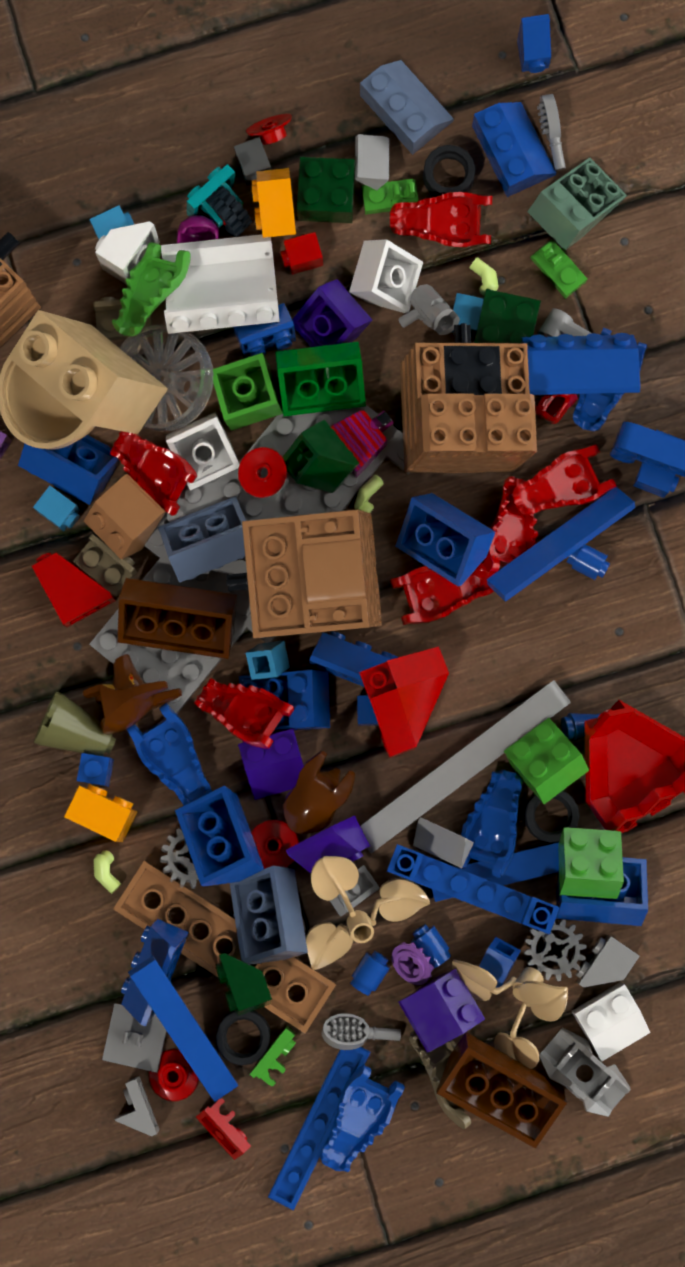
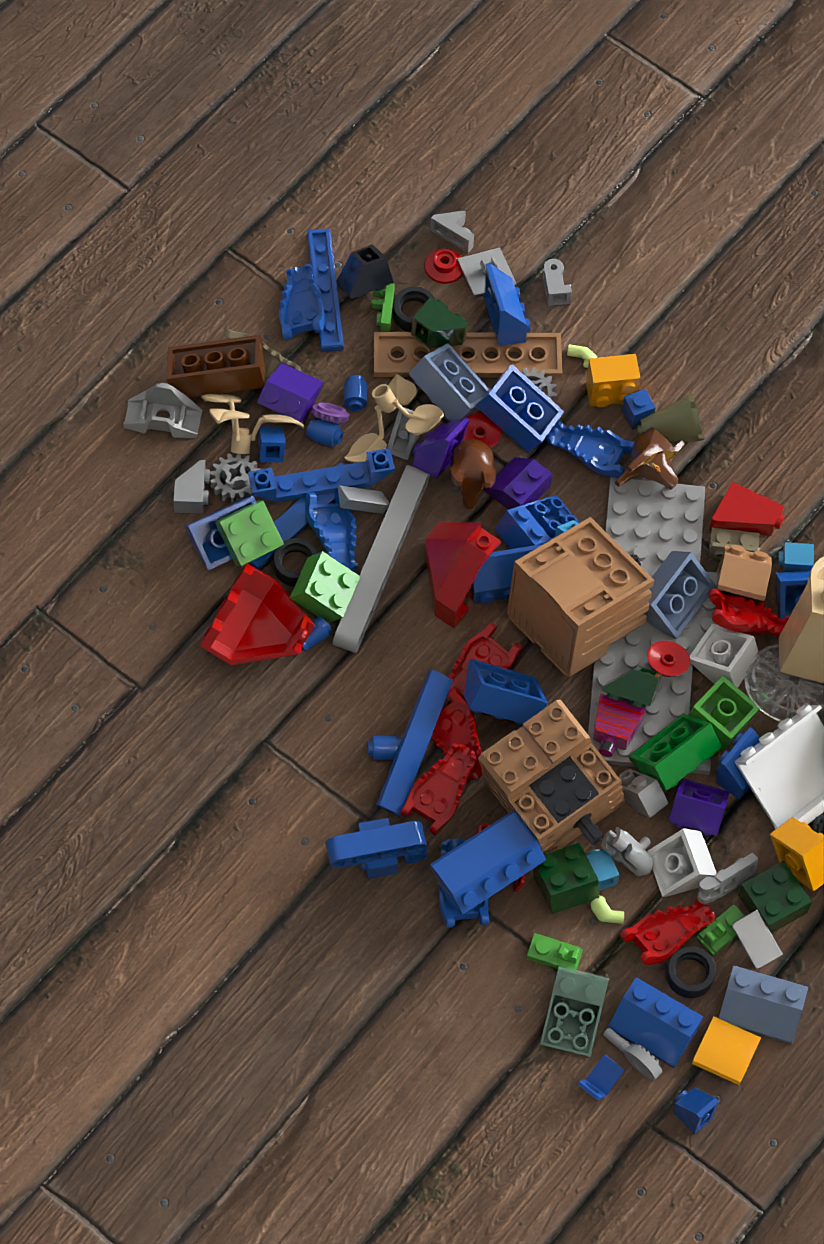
camera: 140 degrees right, 20 degrees down
(77, 976) = (555, 290): none -> light grey leg
(176, 618) = (661, 528): reddish brown slope -> none
(183, 1028) = (459, 278): blue tile -> none
(228, 1136) = (392, 249): red plate -> none
(245, 712) = (561, 496): red animal -> none
(273, 1108) = (364, 272): none -> black slope
(302, 253) = (756, 840): red brick -> none
(352, 1031) = (342, 352): light grey piece -> none
(358, 231) = (728, 879): none -> light grey hinge
(366, 492) = (583, 702): yellowish green arm -> none
(377, 367) = (642, 792): none -> light grey slope
(466, 85) = (726, 1050): none -> light orange slope
(561, 323) = (521, 903): light grey piece -> none
(598, 126) = (602, 1078): none -> blue bracket
(611, 1021) = (166, 456): white slope -> none

